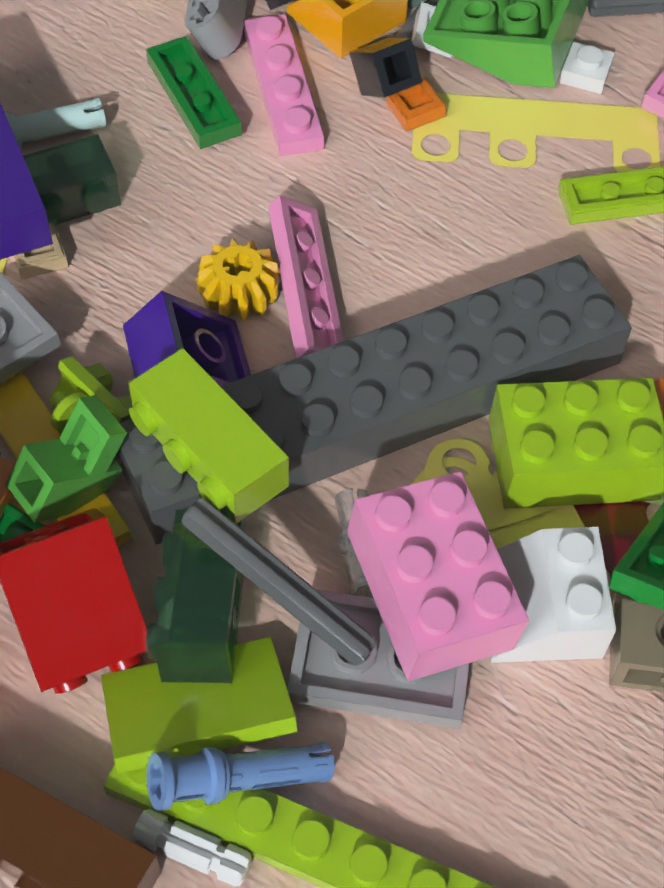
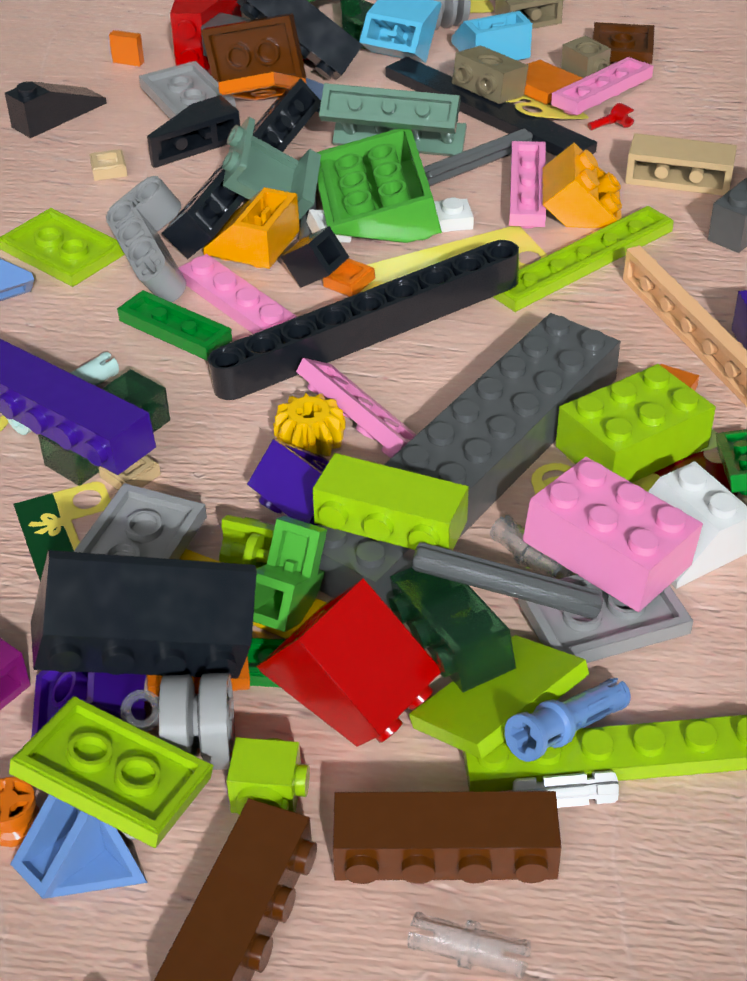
camera: 25 degrees left, 15 degrees down
(391, 170) = (363, 319): none -> black beam

